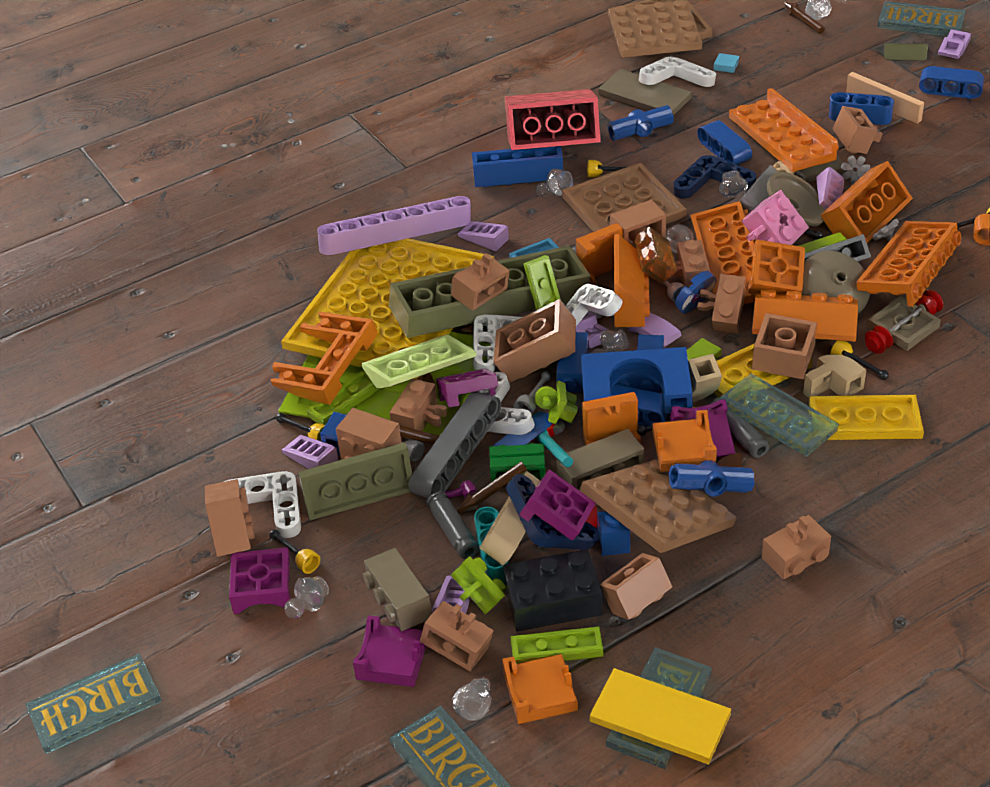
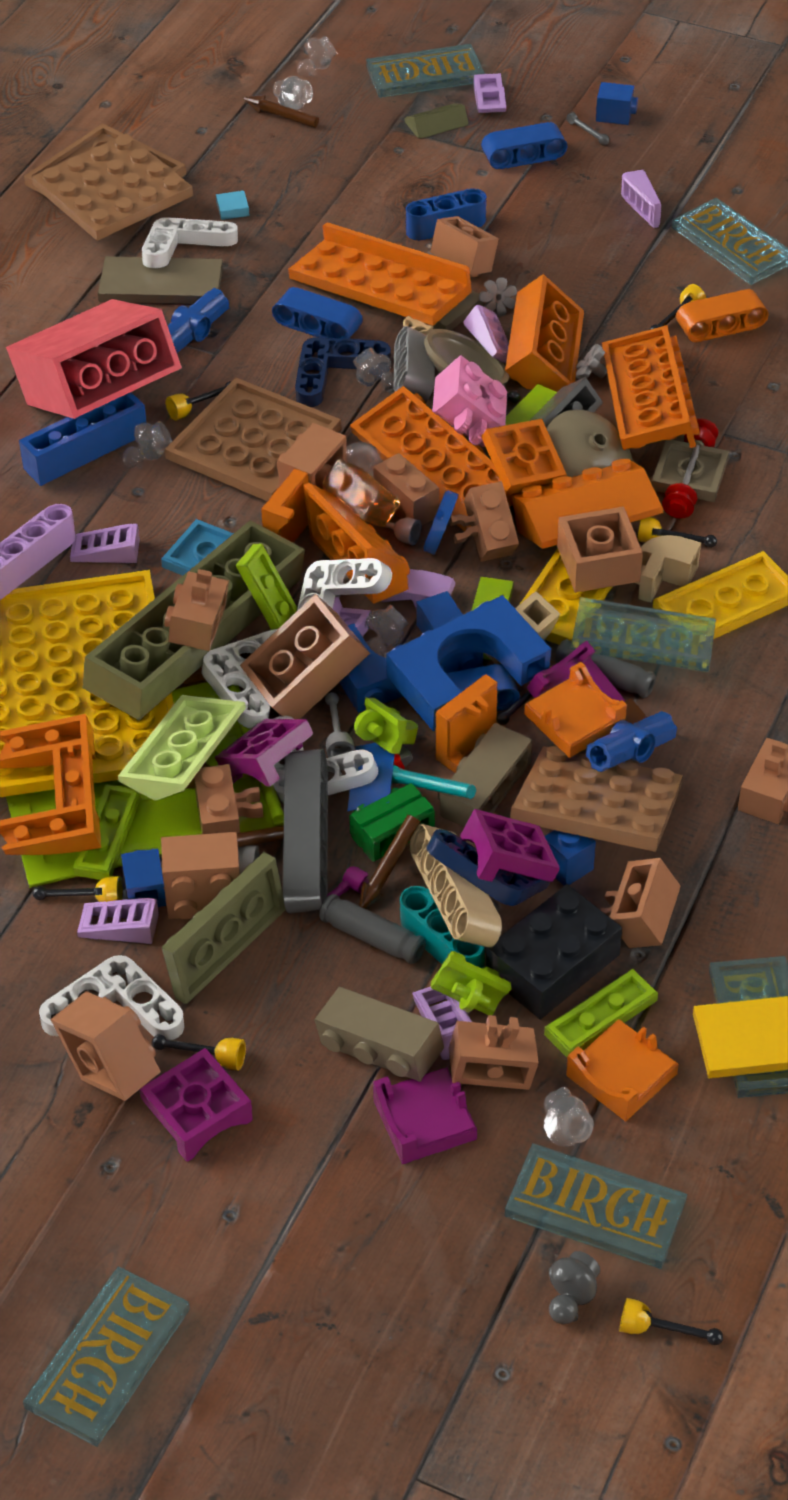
camera: 35 degrees left, 5 degrees up
(309, 596) = (272, 1094): clear animal -> none
(904, 105) = (425, 184): light nougat tile -> none

